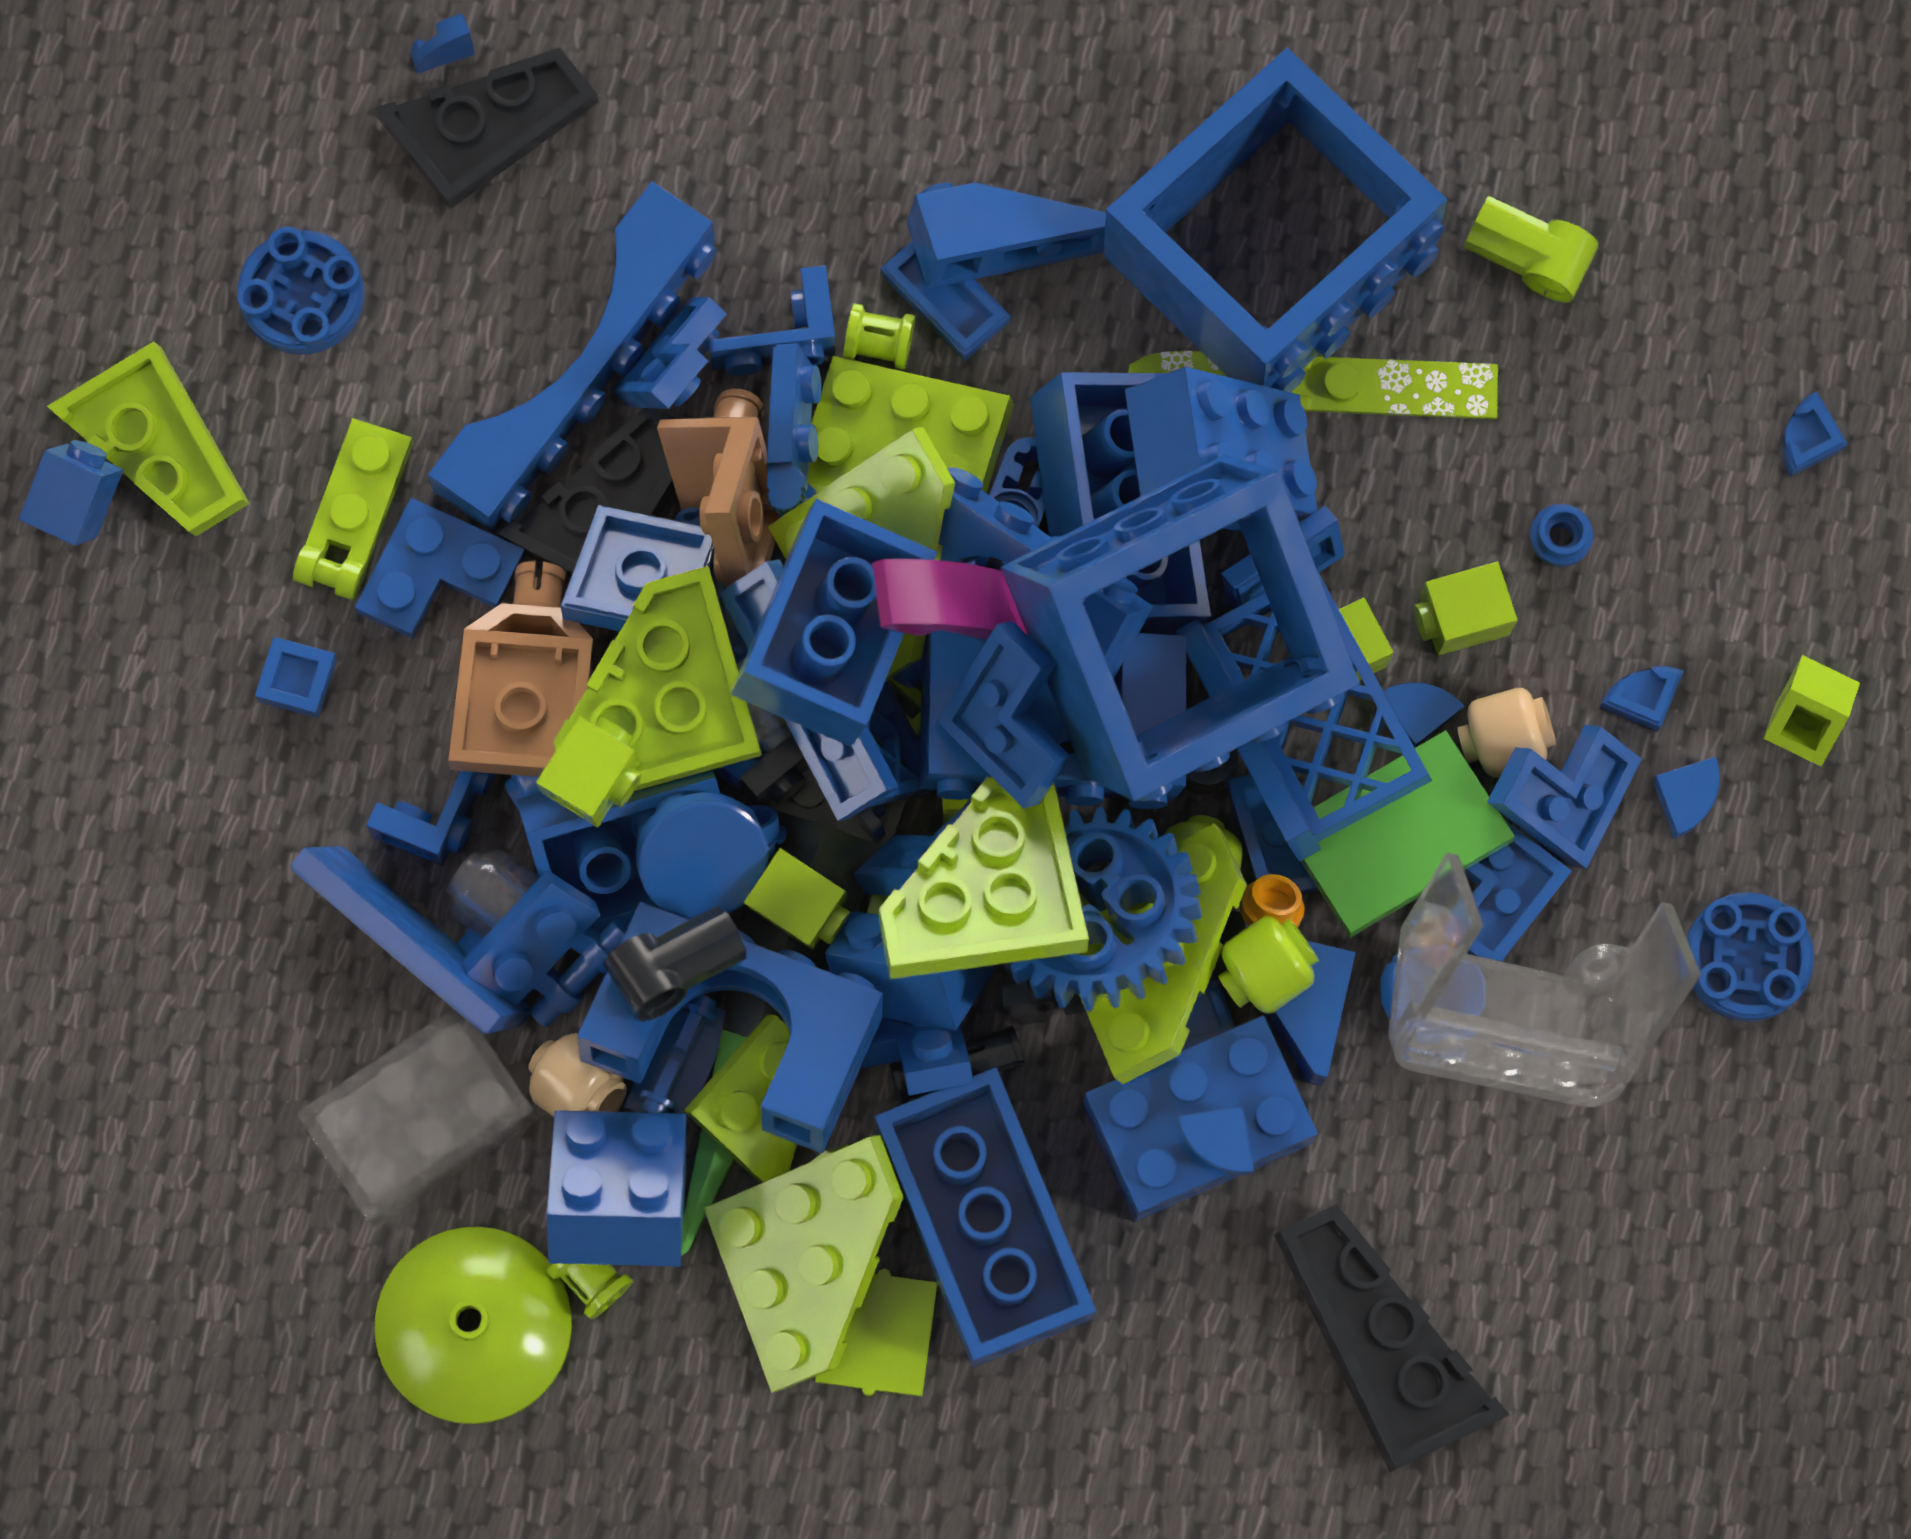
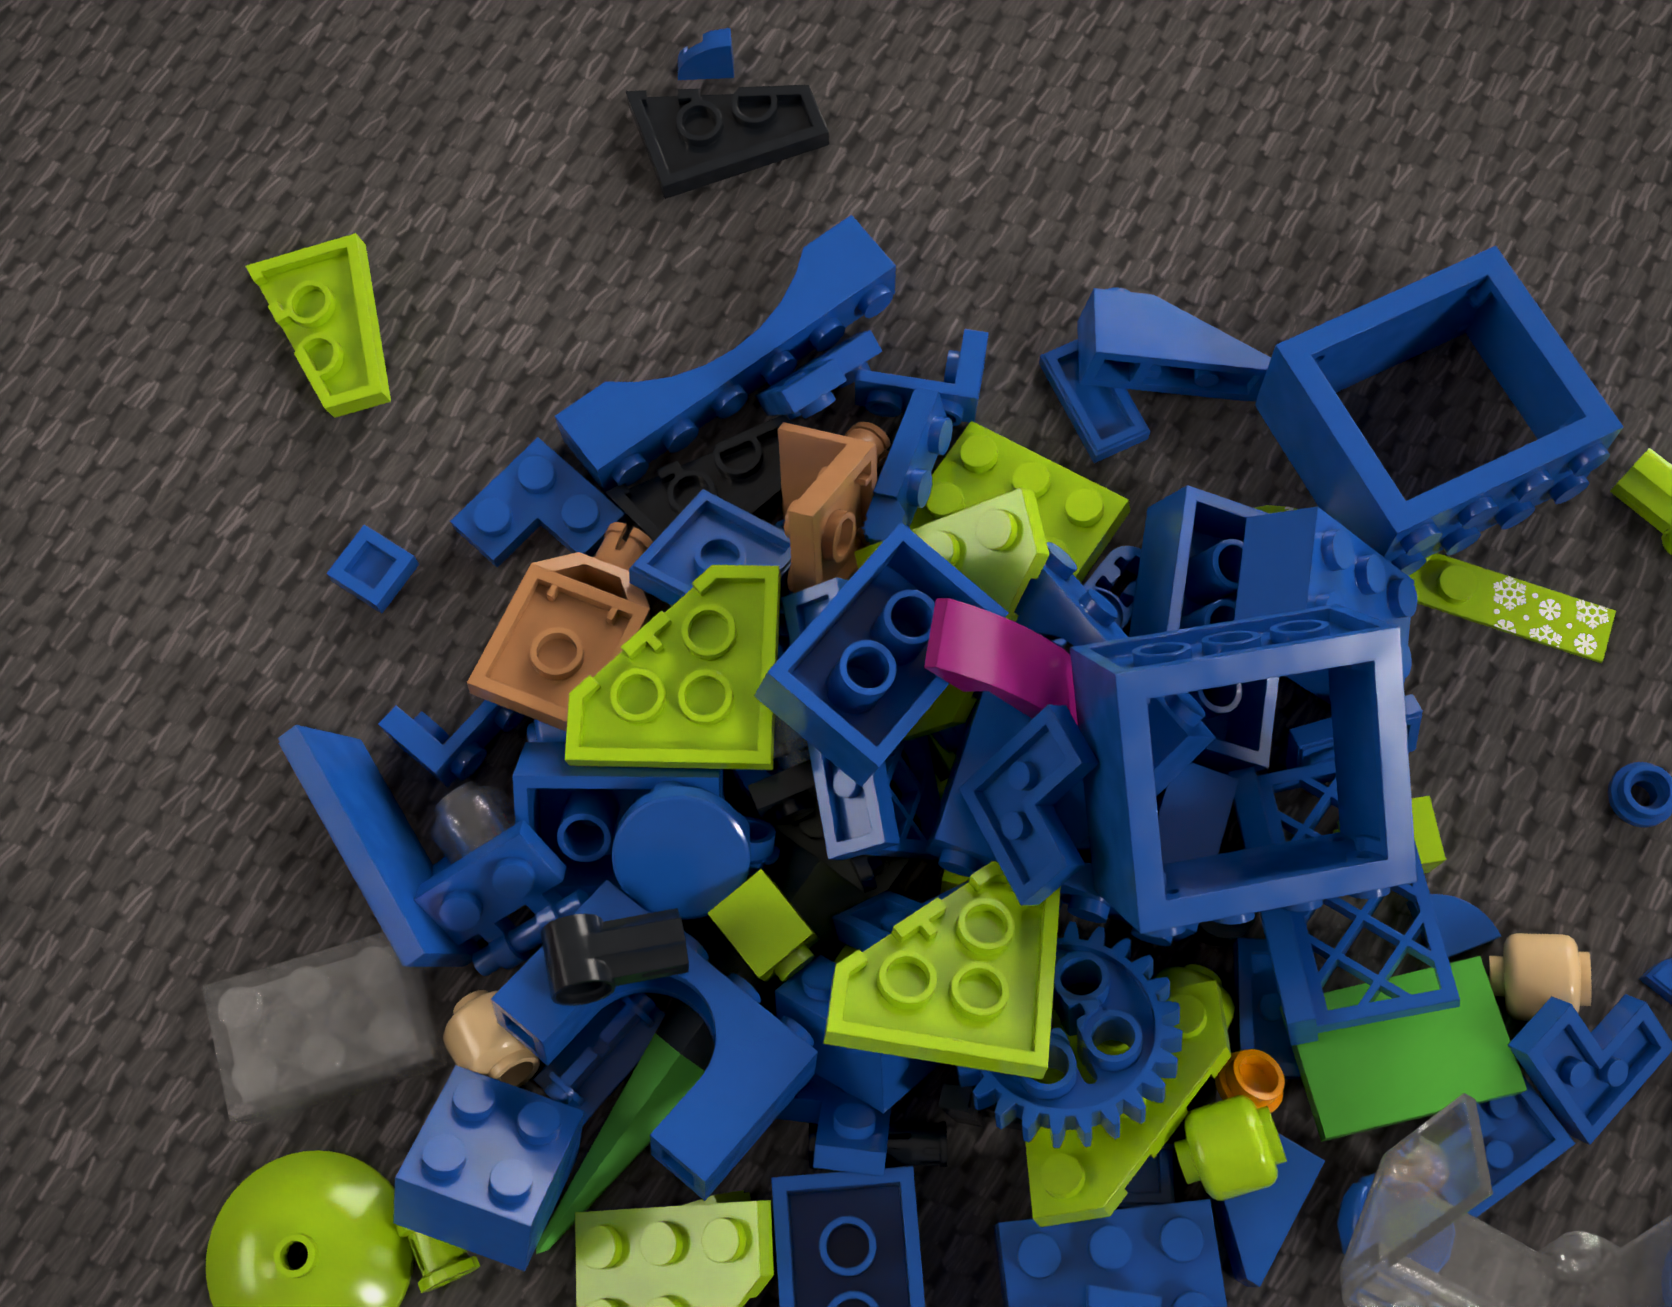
camera: 25 degrees right, 5 degrees down
(71, 492) = (231, 342): blue brick -> none
(301, 291) = (507, 232): blue tile -> none
(354, 507) = (483, 433): lime plate -> none
(592, 770) = (592, 730): lime brick -> none
(733, 1099) = (638, 1106): lime wing -> none
(879, 336) = (1019, 414): lime bush -> none
(1465, 609) = (1528, 838): lime brick -> none

